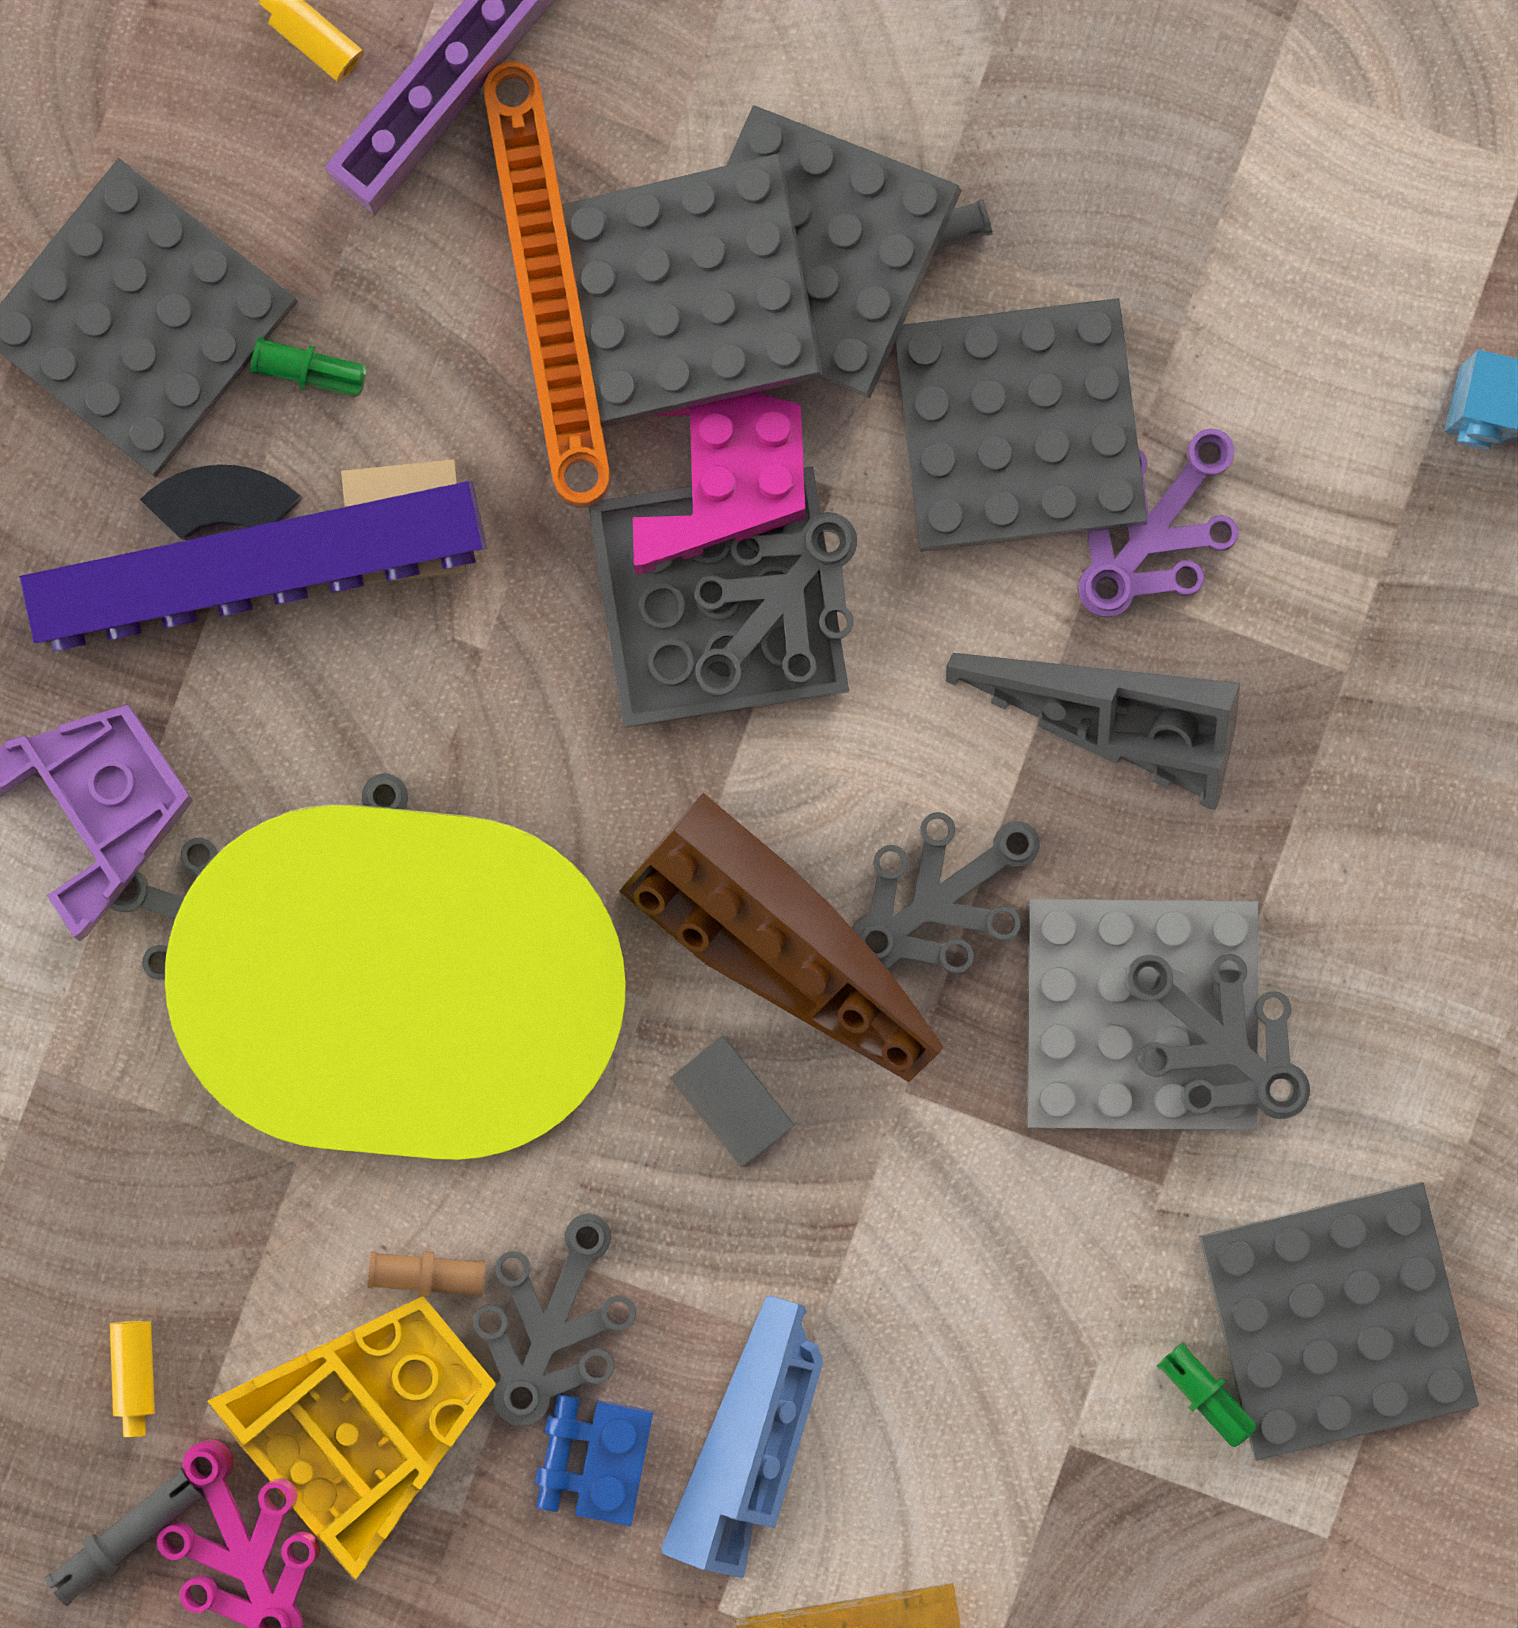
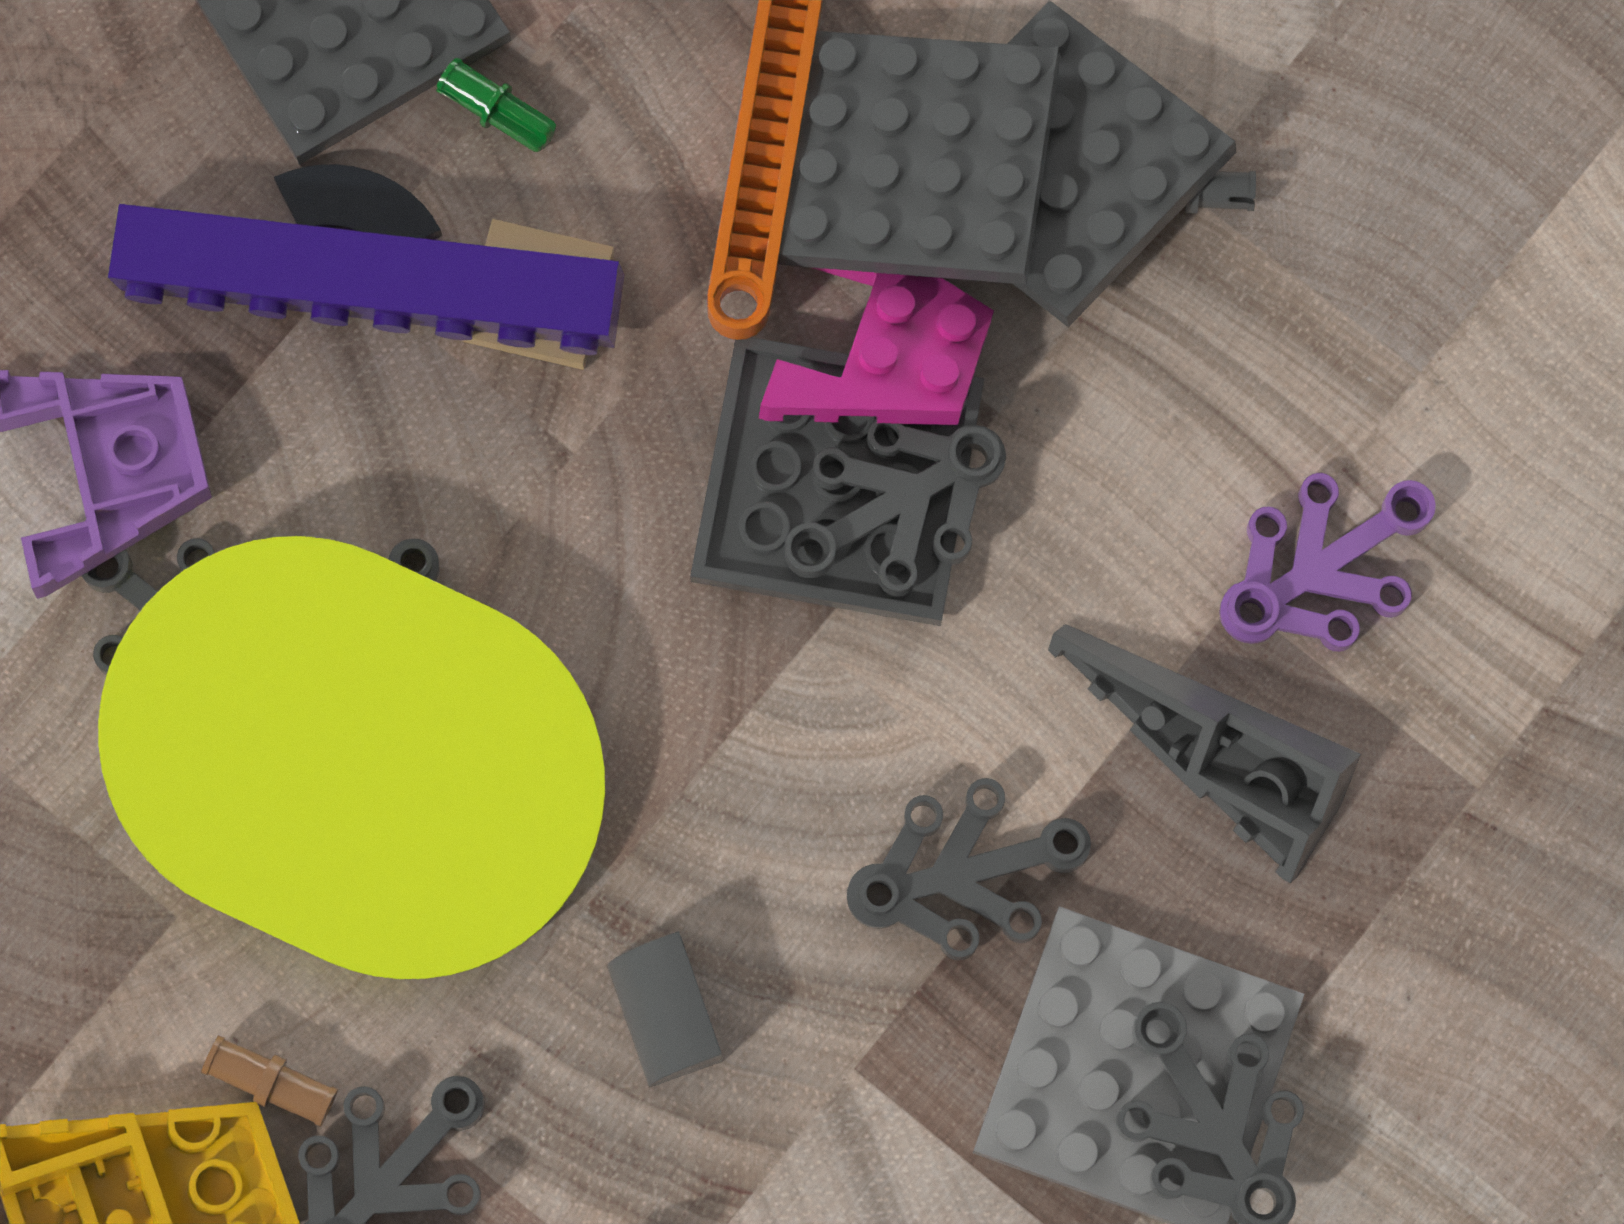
camera: 20 degrees right, 10 degrees down
(777, 937) = (773, 851): reddish brown wedge -> none
(1020, 425) = (1216, 412): dark grey plate -> none

